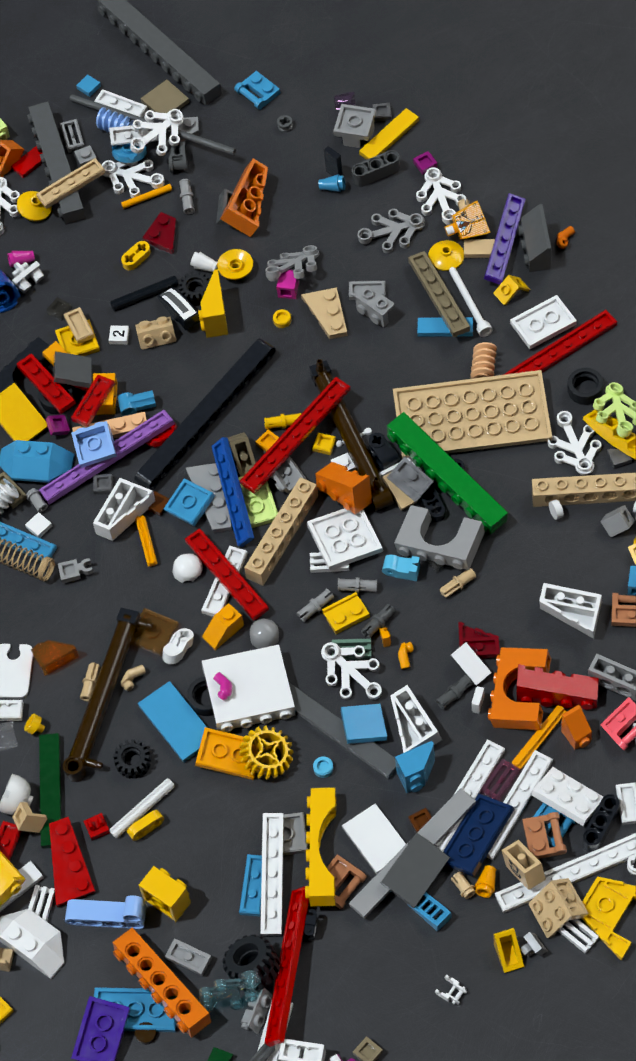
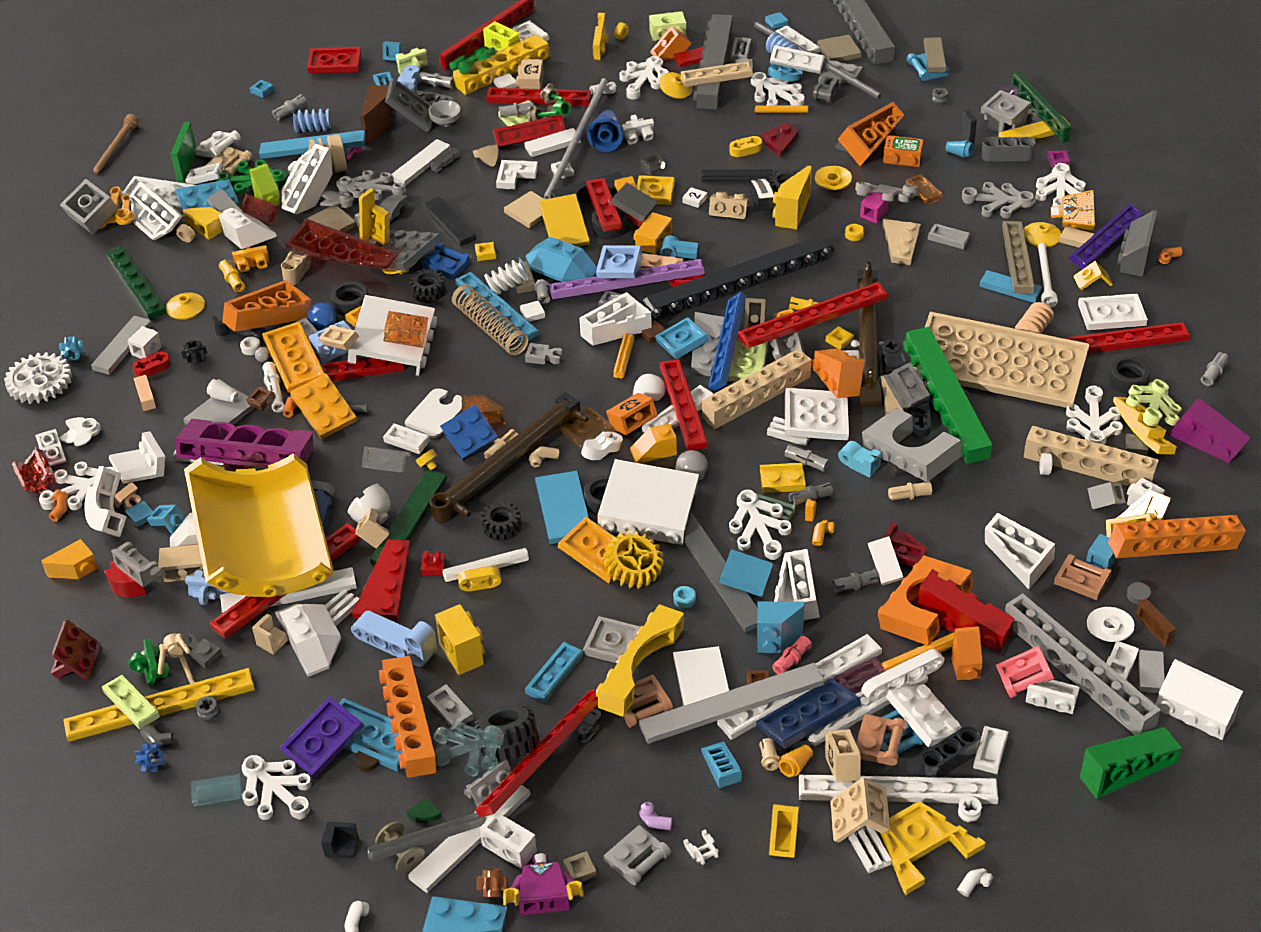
camera: 20 degrees right, 15 degrees down
(20, 257) = (640, 114): dark pink cone -> none
(57, 425) = (596, 241): magenta plate -> none
(57, 682) = (469, 432): none -> blue plate
(78, 325) = (661, 177): tan tile -> none
(92, 400) = (638, 230): red tile -> none
(157, 129) = (837, 57): white plant -> none
(186, 196) = (817, 118): light grey pin -> none
(188, 603) = (632, 413): none -> orange brick
(203, 262) = (800, 163): white cone -> none
(225, 686) = (624, 485): dark pink arm -> none
(260, 79) = (934, 55): none -> dark tan tile
(272, 874) = (576, 666): white plate -> none
(283, 207) = (903, 151): none -> orange brick
(315, 605) = (755, 459): light grey pin -> none
(326, 246) = (927, 192): none -> clear orange tile
(373, 305) = (947, 245): light grey bracket -> none
(385, 108) = (1042, 107): none -> dark green tile
(398, 1017) = (631, 850): none -> light grey plate
(400, 983) = (652, 819): none -> lavender arm
(414, 870) = (724, 716): dark grey tile -> none
(437, 786) = (792, 655): none -> coral pin
(477, 699) = (876, 595): white tile -> none
(533, 946) = (813, 839): light grey tile -> none
(535, 768) = (903, 674): none -> white beam

